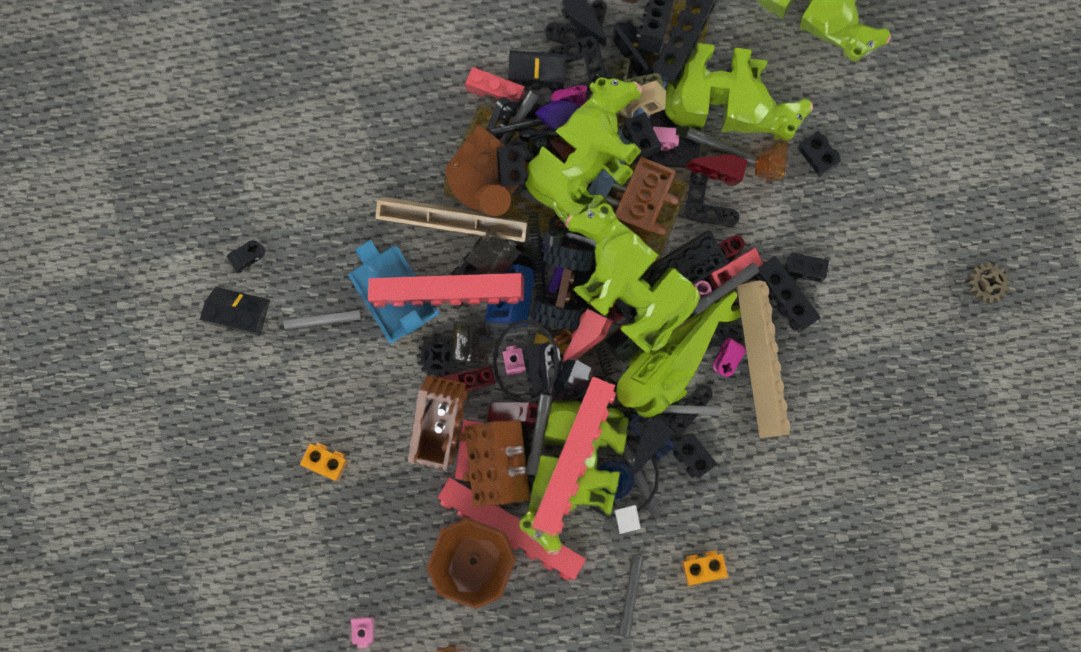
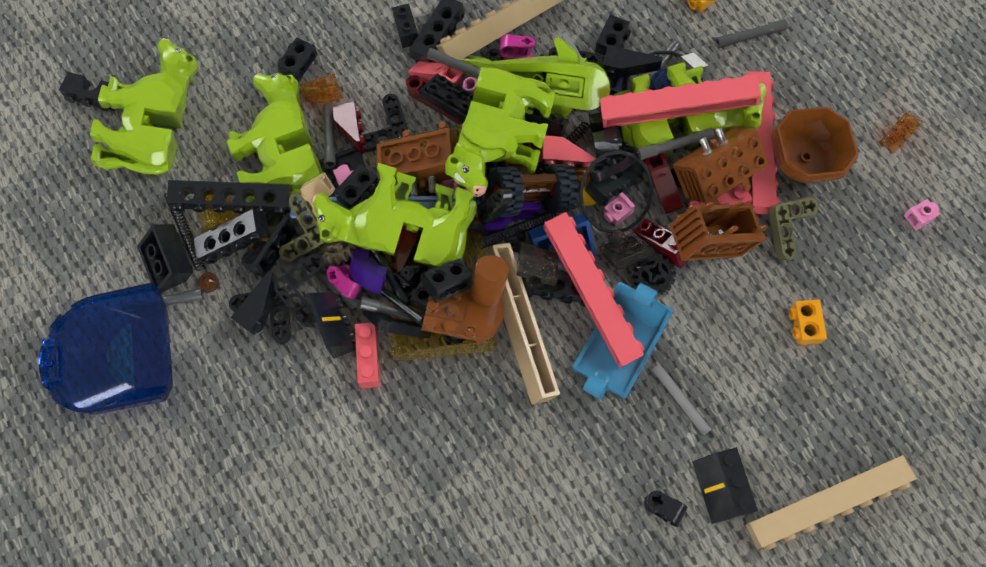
camera: 115 degrees left, 10 degrees down
(176, 386) = (830, 502): none -> tan brick
(425, 502) = (786, 216): none -> olive beam

